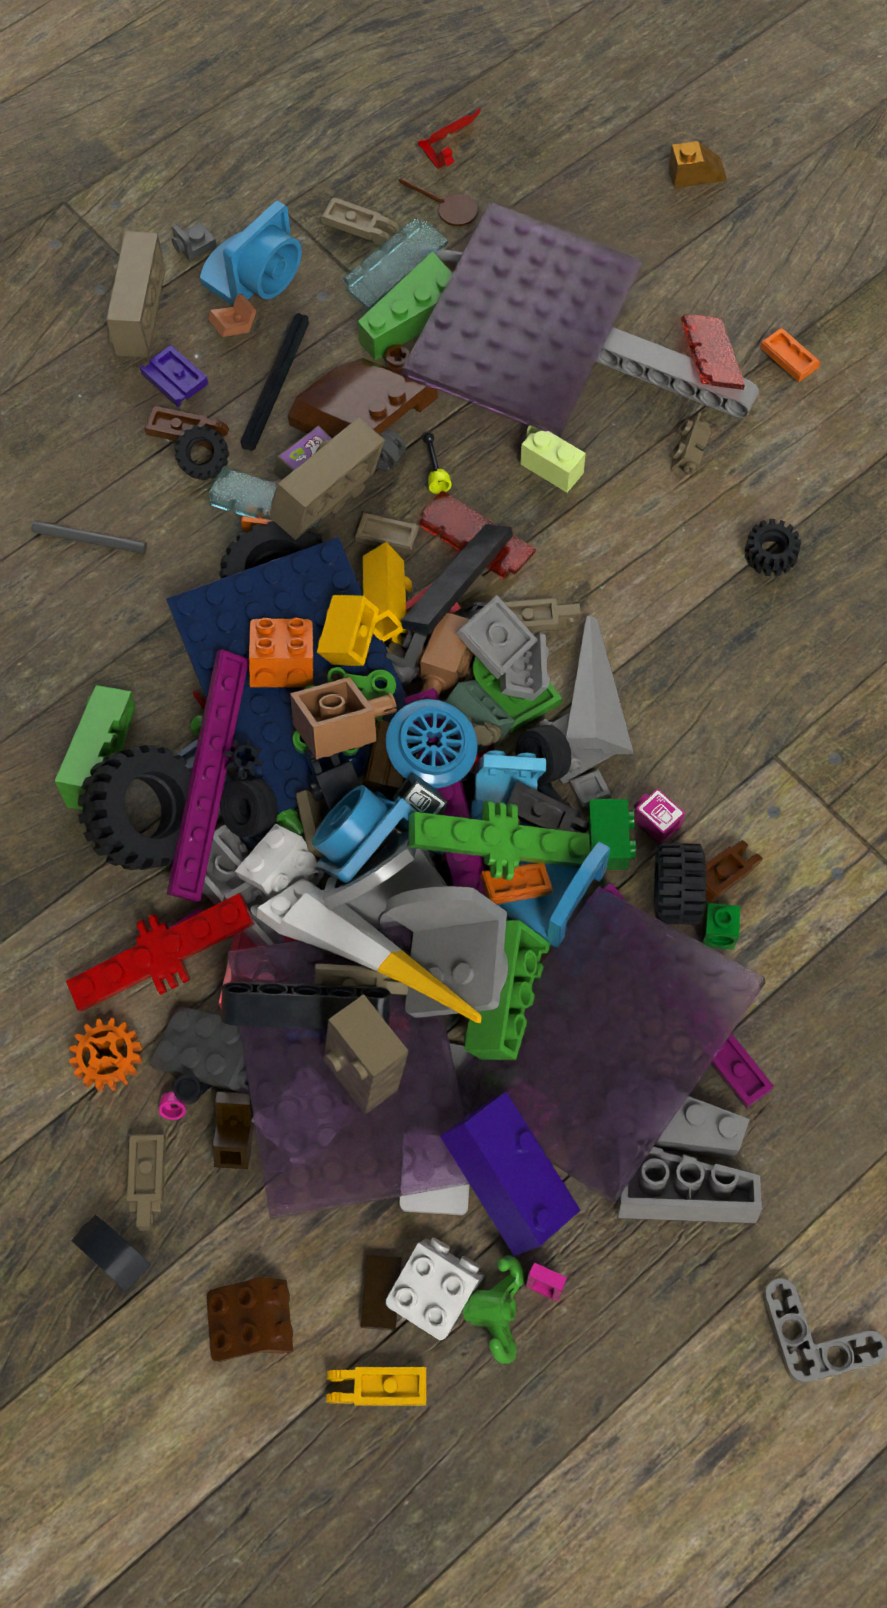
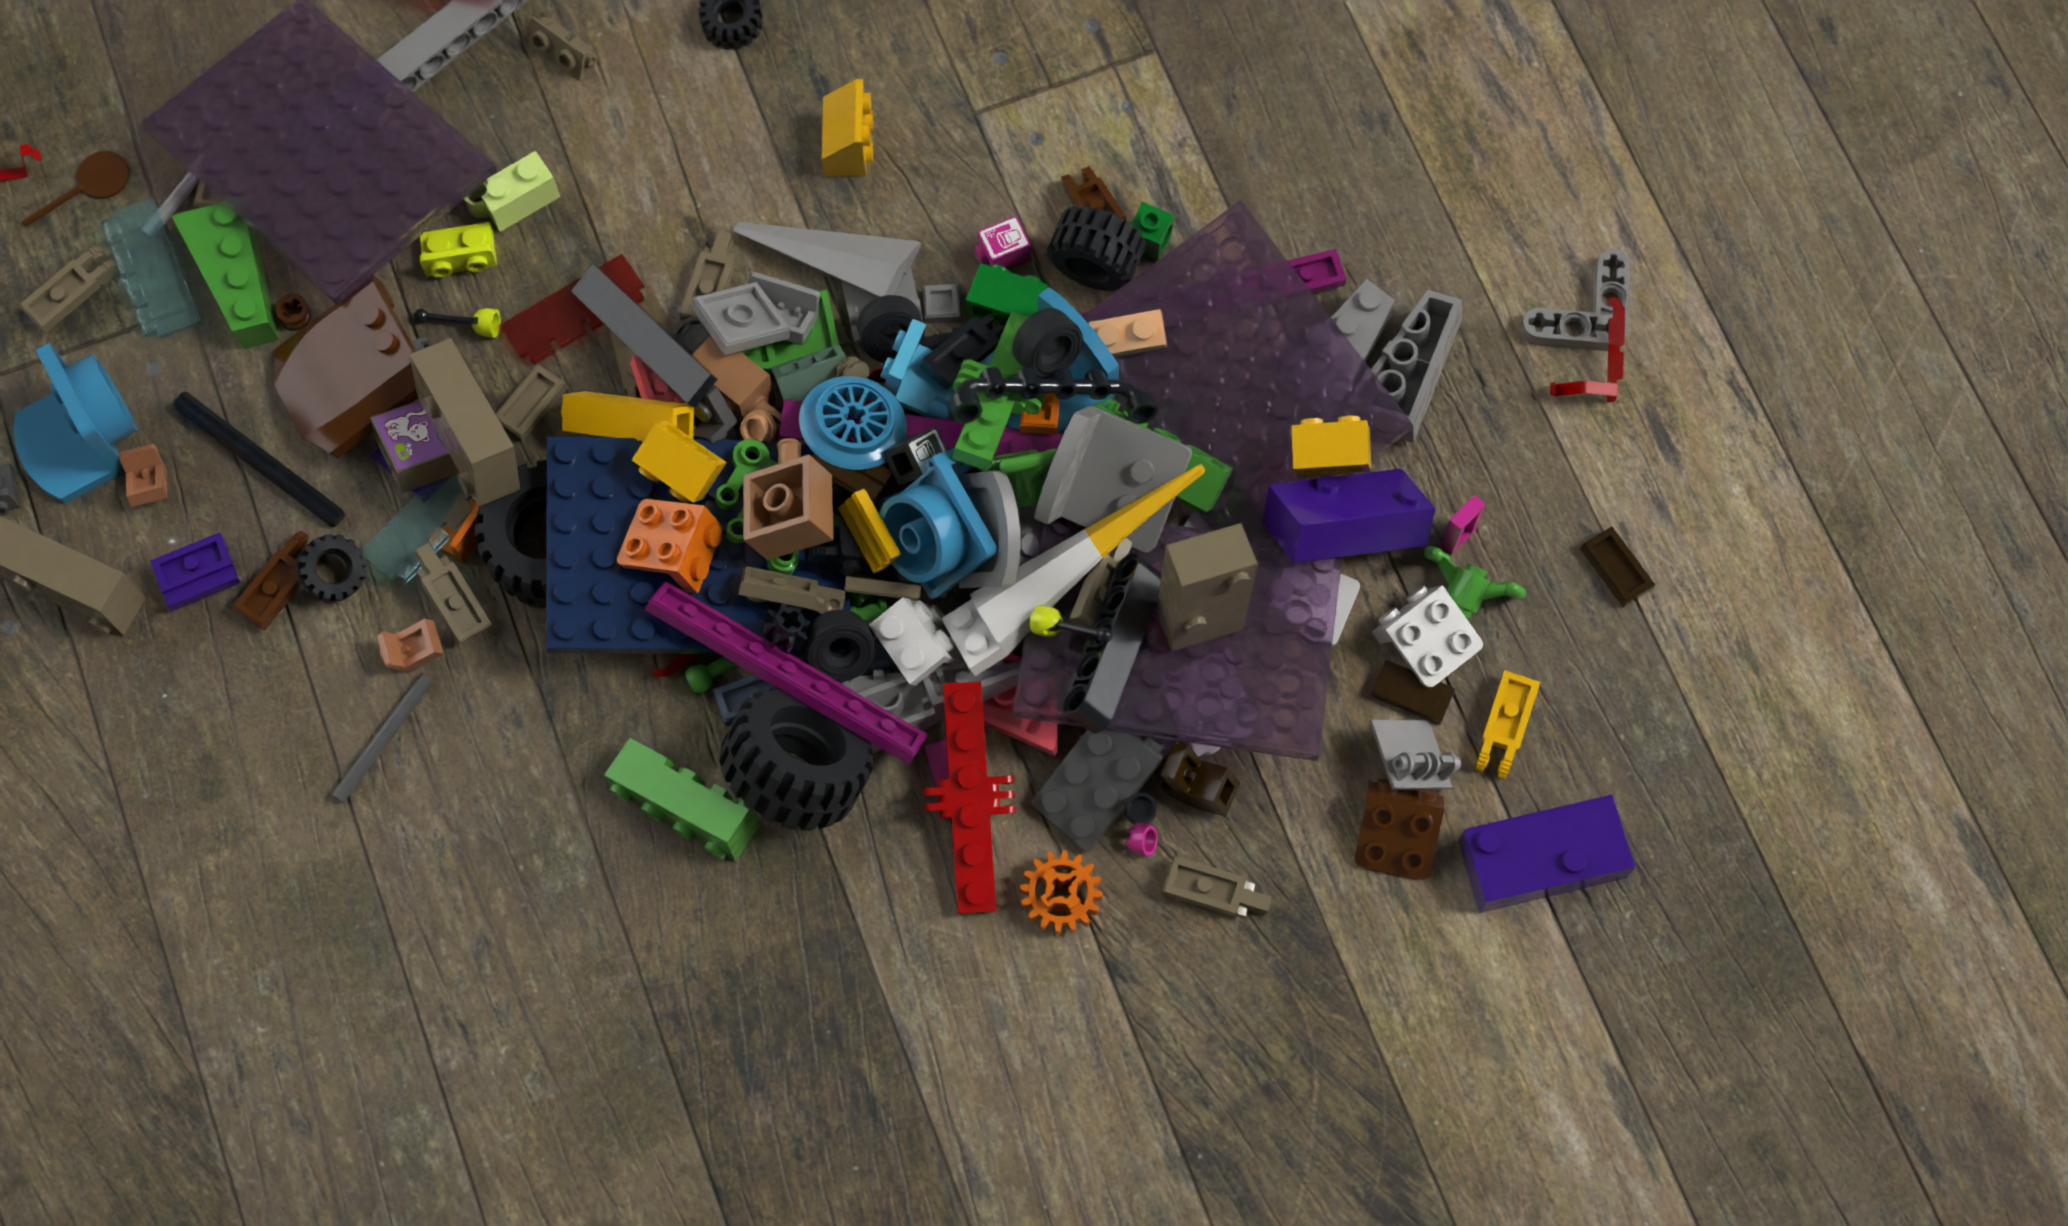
camera: 70 degrees left, 5 degrees up
(110, 1252) = (1282, 945): black brick -> none
(160, 525) = (410, 646): none -> nougat bracket
(208, 535) = (450, 595): none -> dark tan hinge
(262, 1461) = (1546, 853): none -> dark purple brick
(277, 751) = (791, 590): none -> dark tan hinge
(308, 949) = (1047, 622): none -> hinge
(316, 1307) = (1413, 755): none -> light grey hinge
(342, 787) = (869, 530): none -> yellow tile
(413, 683) = (758, 426): none -> light nougat plate
(431, 876) = (1025, 473): none -> bright green piece
(491, 441) = (458, 250): none -> neon yellow bracket
(520, 886) = (967, 407): none -> black bar
(559, 1133) = (1331, 447): none -> yellow brick
(564, 856) = (1047, 342): none -> black tyre
(569, 1446) = (1617, 566): none -> dark brown tile
(606, 933) = (1132, 333): none -> light nougat plate
(705, 664) = (847, 131): none -> yellow slope
(766, 1380) = (1615, 362): none -> red piece

